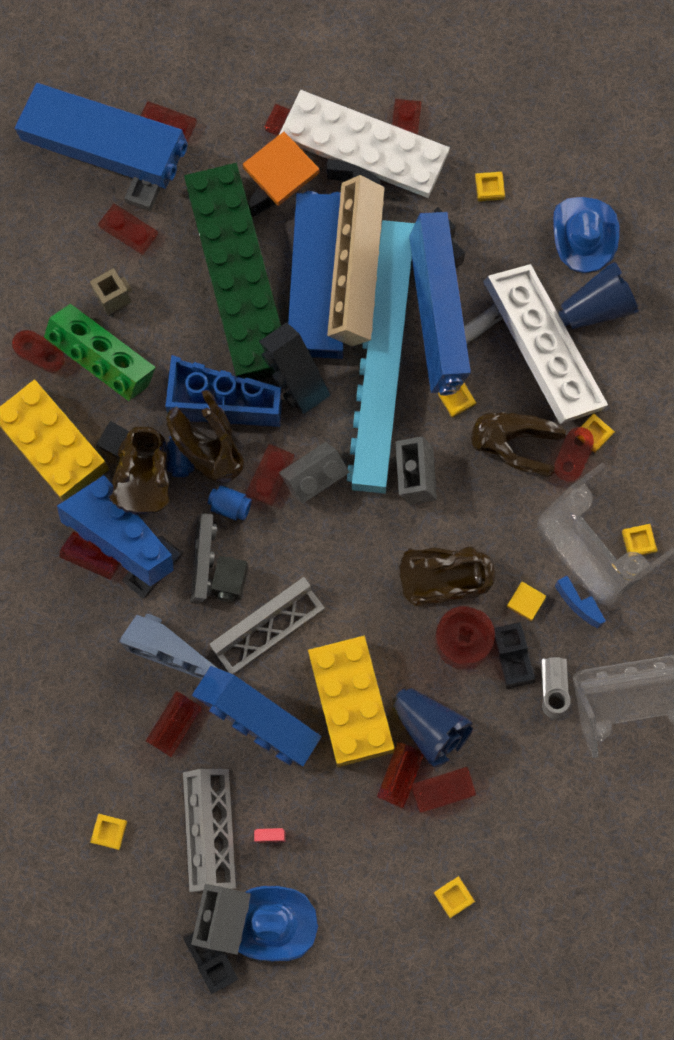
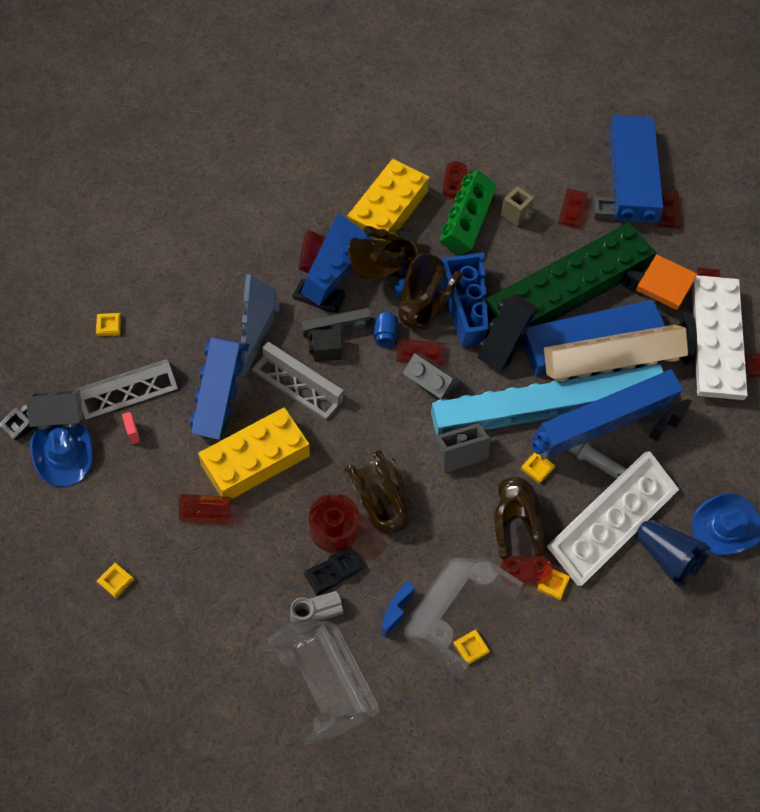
camera: 65 degrees right, 15 degrees down
(173, 724) = (195, 338): clear red plate -> none
(431, 725) = (250, 520): dark blue cone -> none
(443, 789) = (202, 545): clear red plate -> none
(490, 186) = (732, 442): yellow tile -> none
(526, 601) = (384, 568): yellow tile -> none

